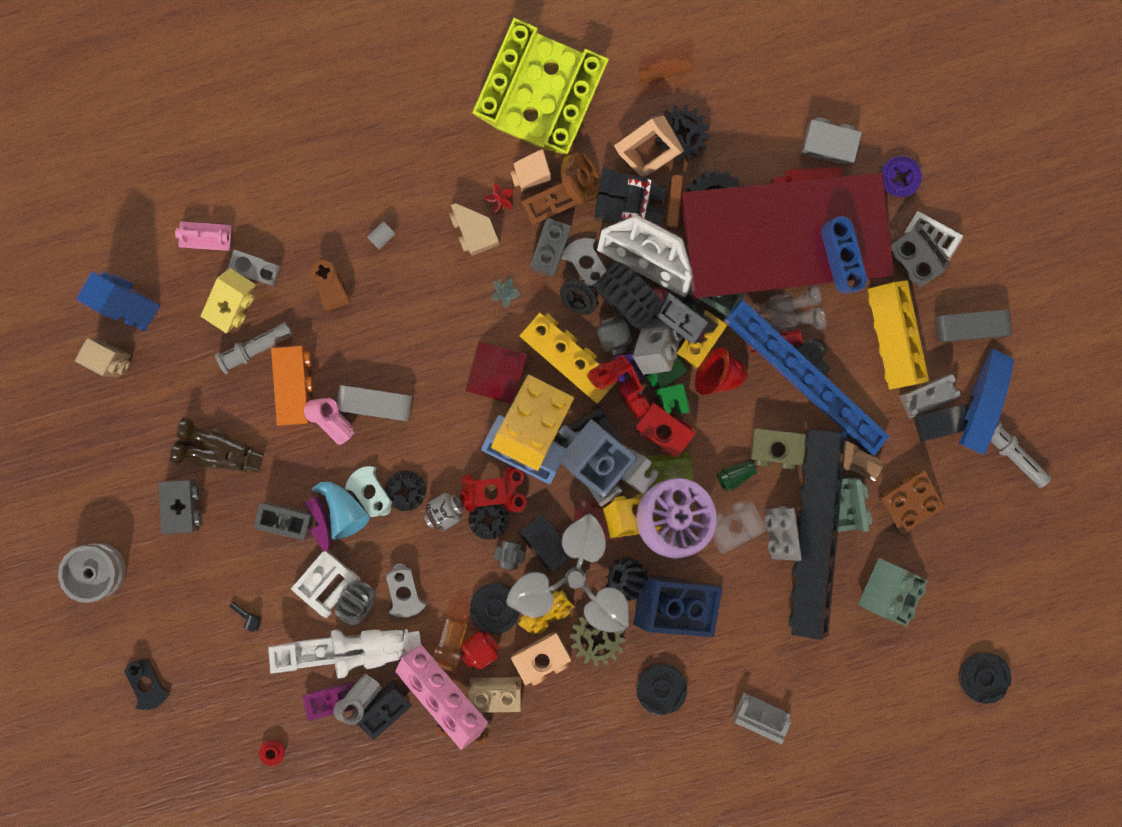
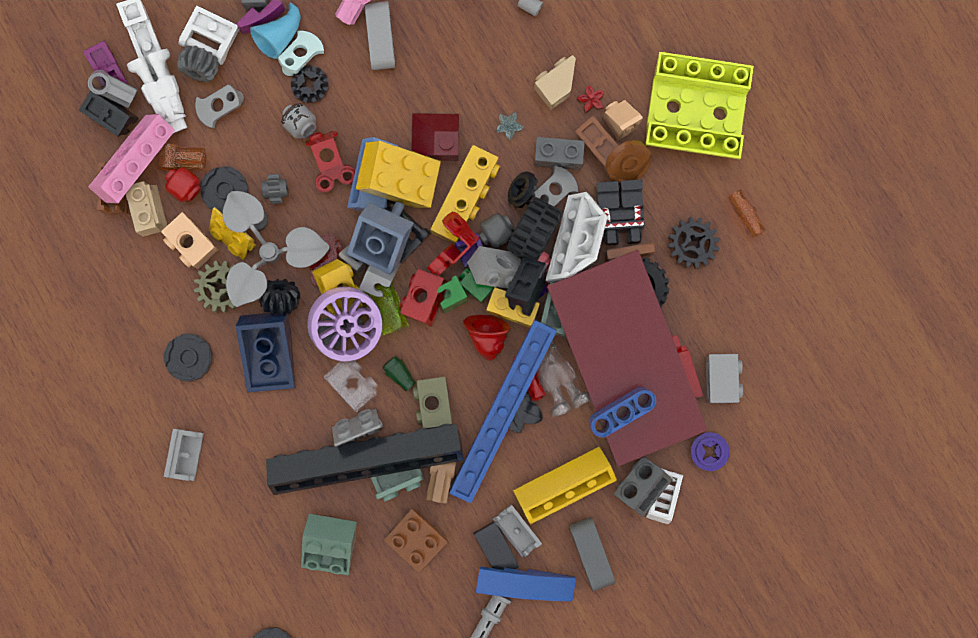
camera: 65 degrees right, 5 degrees down
(273, 745) = (51, 32): red plate -> none
(499, 525) = (298, 173): black gear -> none
(544, 542) = (295, 215): black hinge -> none
(657, 126) = (669, 198): light nougat tile -> none

